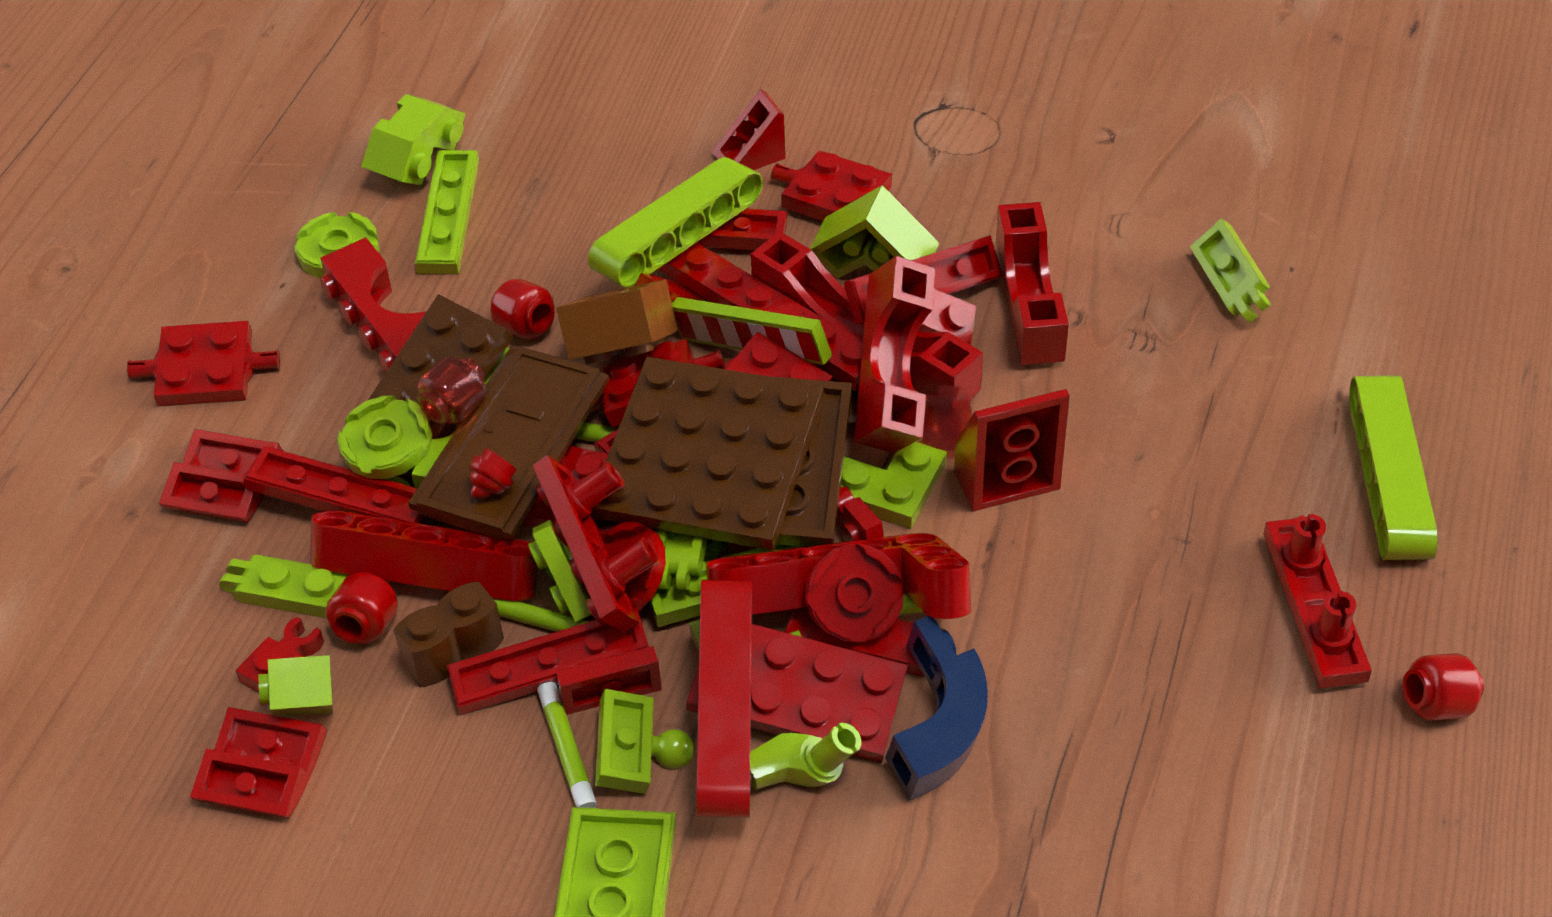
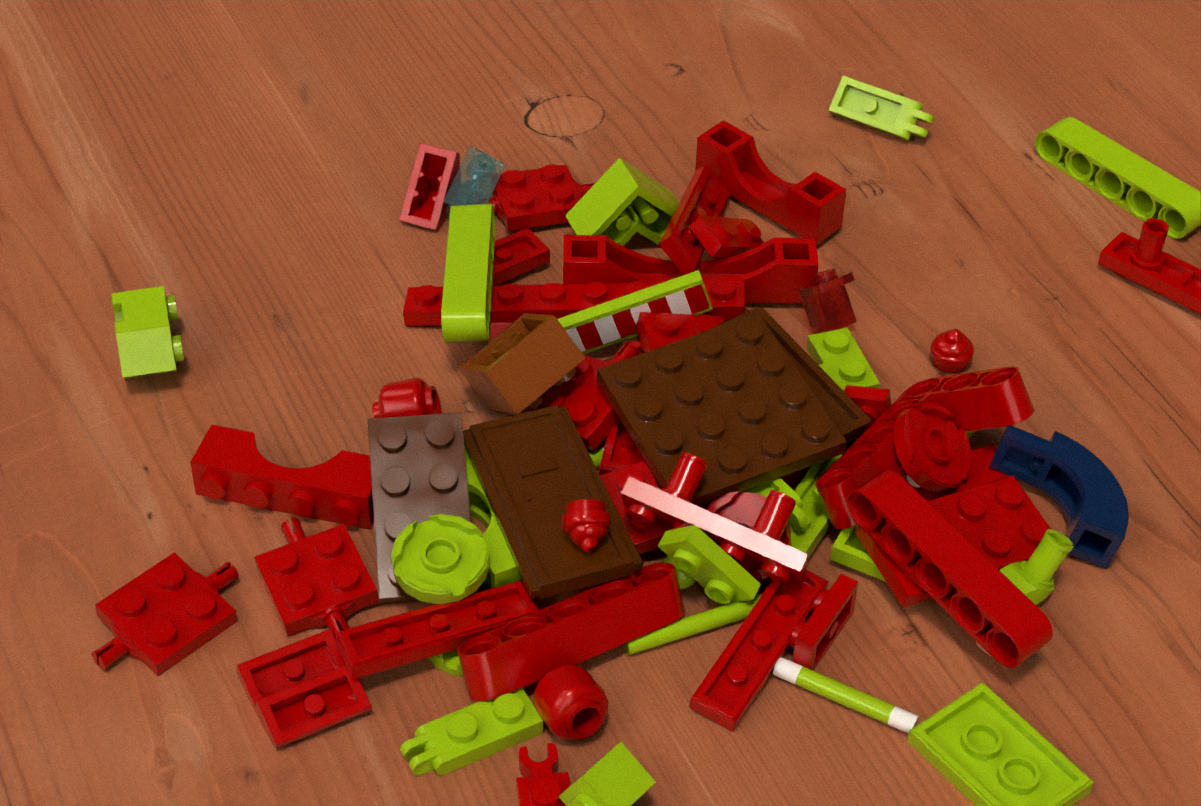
camera: 45 degrees left, 5 degrees down
(317, 400) = (316, 579): none -> red plate
(328, 234) = (160, 455): lime tile -> none
(447, 212) = (236, 378): lime tile -> none
(451, 389) = (472, 482): clear red head -> none
(454, 630) = (667, 673): reddish brown brick -> none
(628, 744) = (897, 661): lime plate -> none
(786, 148) = (474, 179): none -> clear light blue hinge
(896, 306) = (737, 230): red arch -> none
(1013, 450) = (909, 296): red slope -> none
(1013, 528) = (951, 351): none -> red plate

